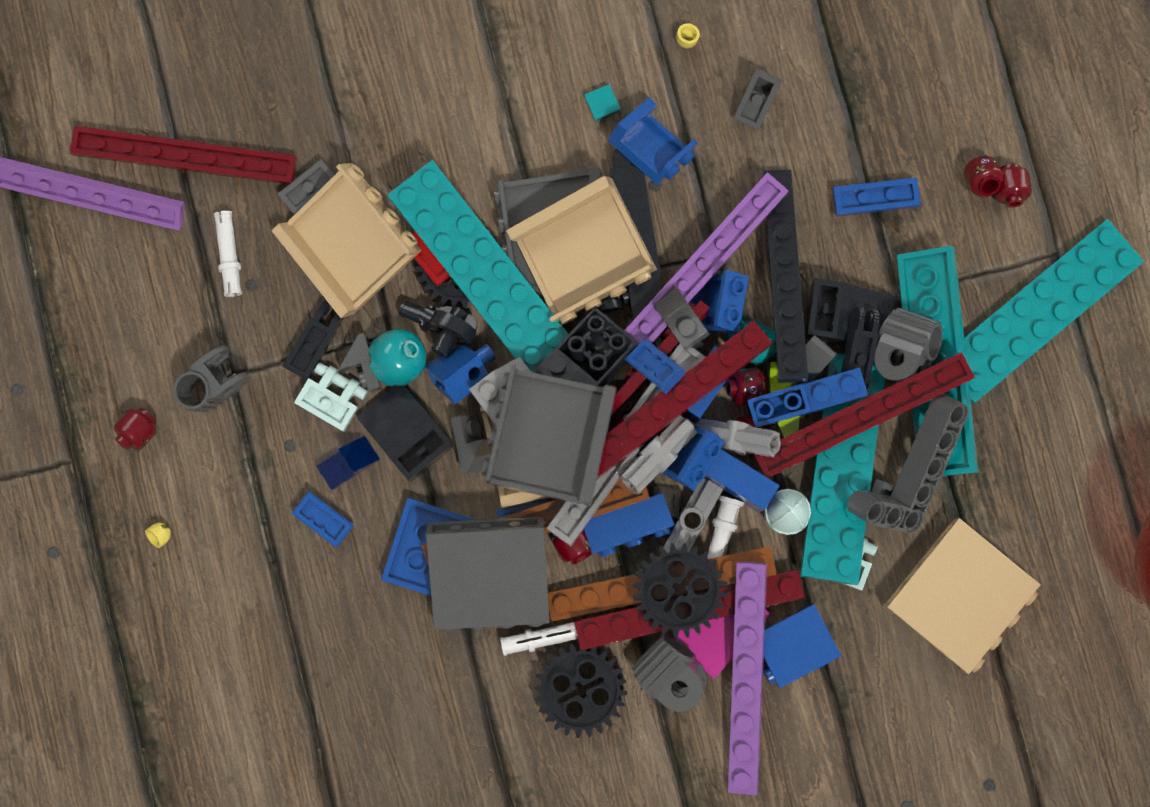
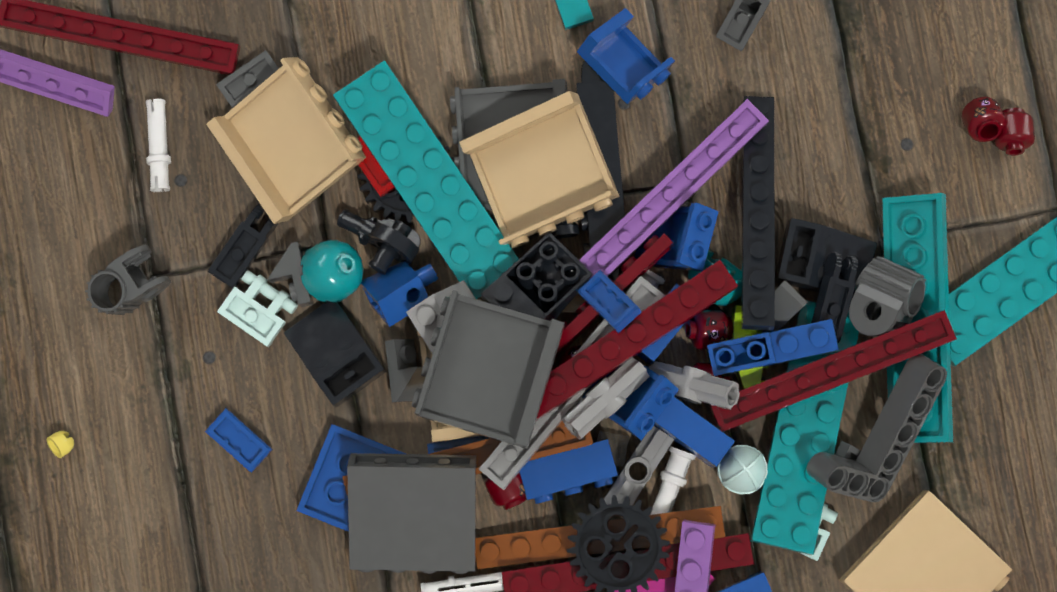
camera: 10 degrees right, 0 degrees up
(135, 429) = (43, 328): dark red head -> none
(348, 462) = (270, 380): clear blue slope -> none
(681, 319) = (641, 252): dark grey slope -> none
(876, 197) = (864, 133): blue plate -> none

